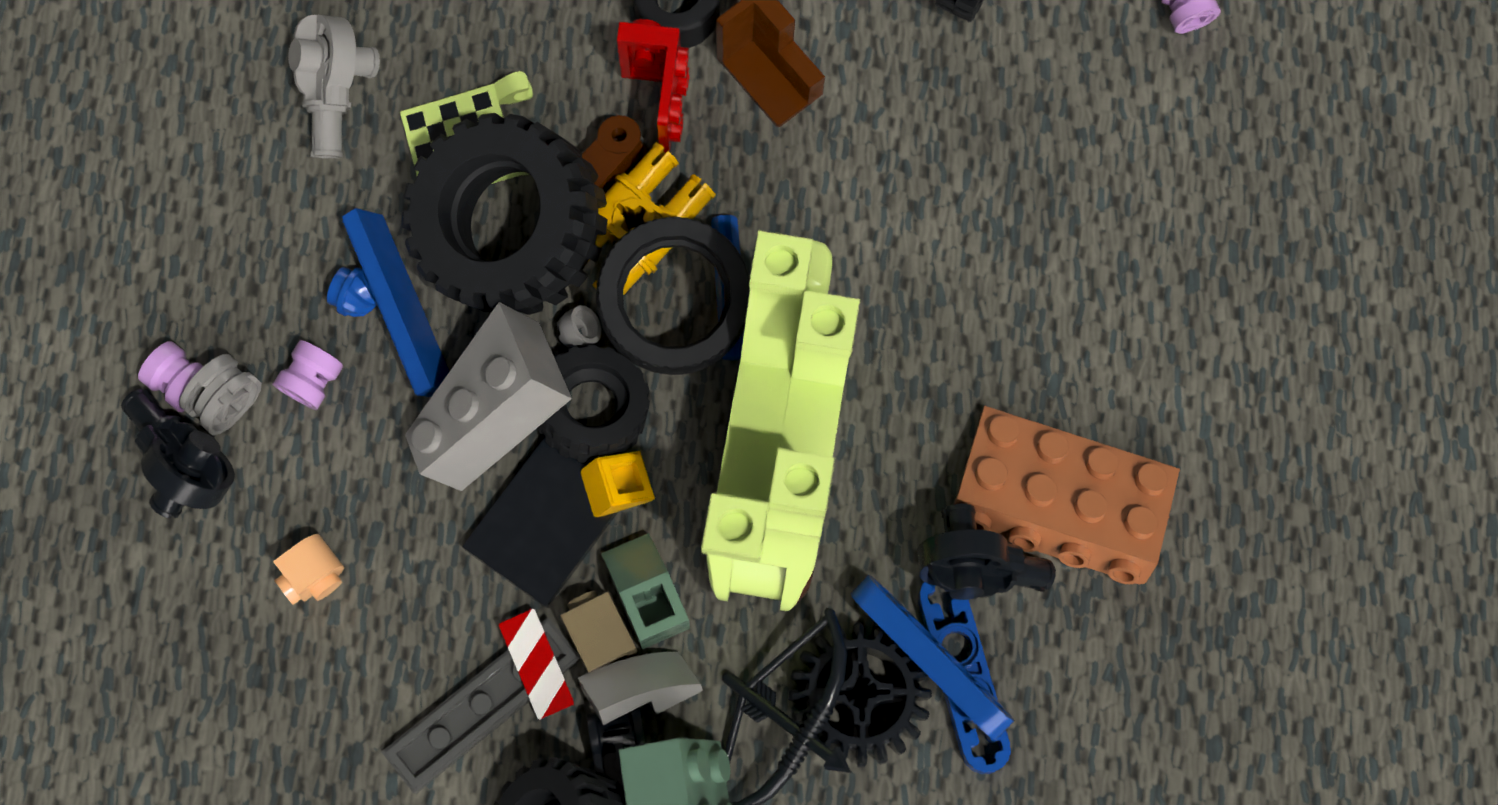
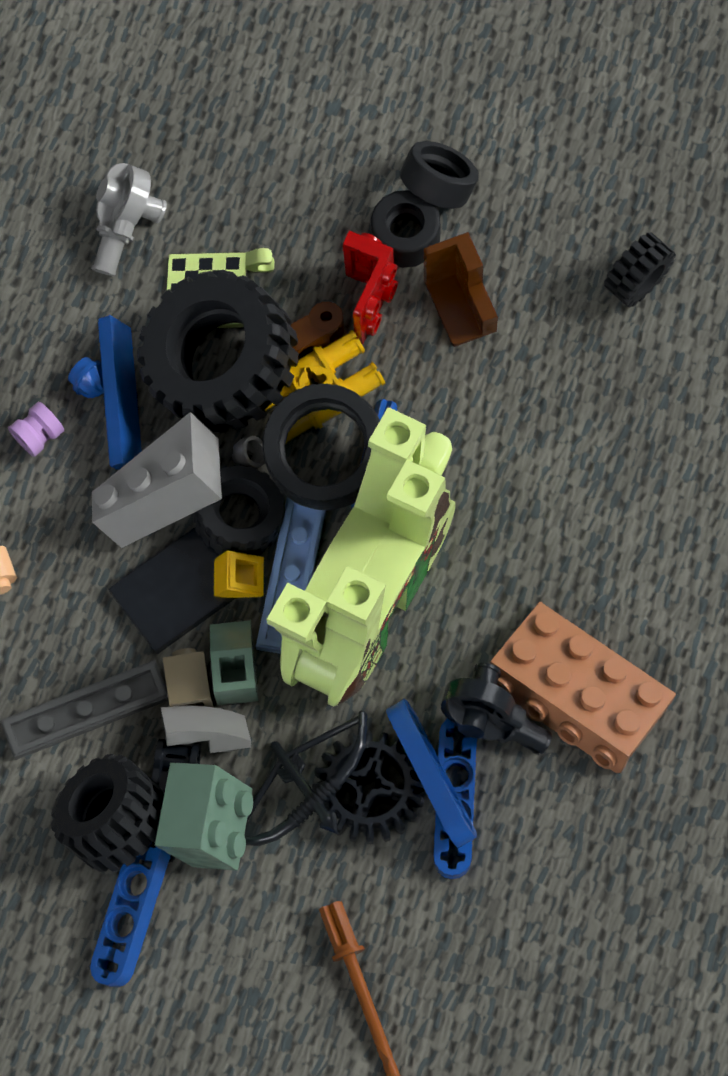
camera: 25 degrees right, 5 degrees down
(536, 664) = (134, 690): sticker -> none
(678, 465) = (292, 563): none -> light blue tile

